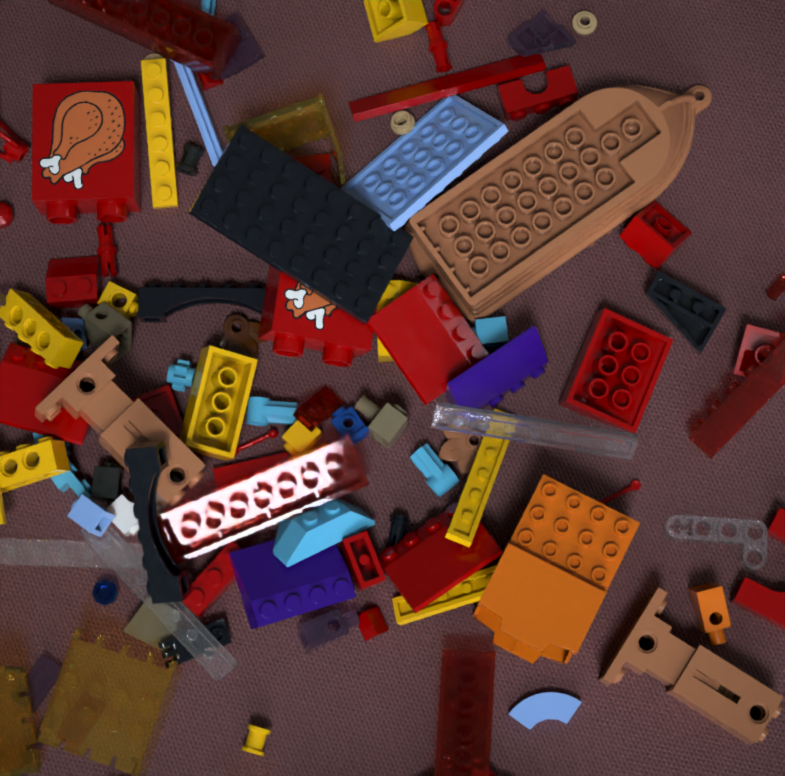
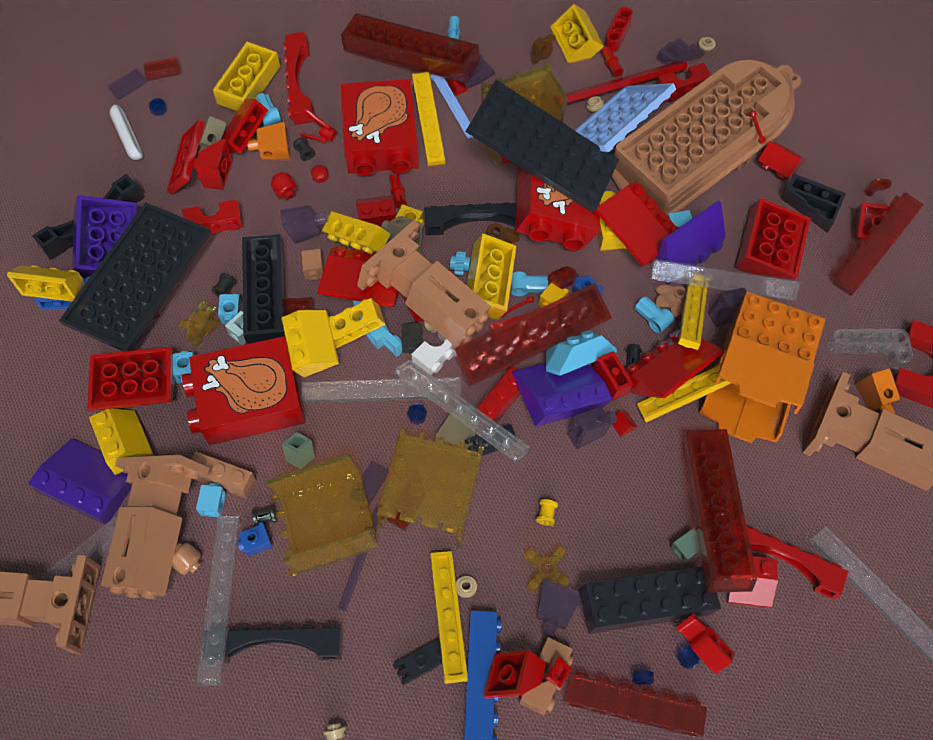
camera: 10 degrees left, 15 degrees down
(91, 515) = (404, 353): light blue brick -> none
(166, 579) = (449, 297): black arch -> none
(189, 160) = (450, 134): pearl dark grey bush -> none
(336, 24) = (542, 48): none -> reddish brown plate
(386, 424) = (616, 282): dark tan brick -> none
(530, 469) = (726, 306): none -> clear purple torso
(545, 706) = (767, 473): light blue tile -> none
(615, 225) = (762, 139): none -> red hinge

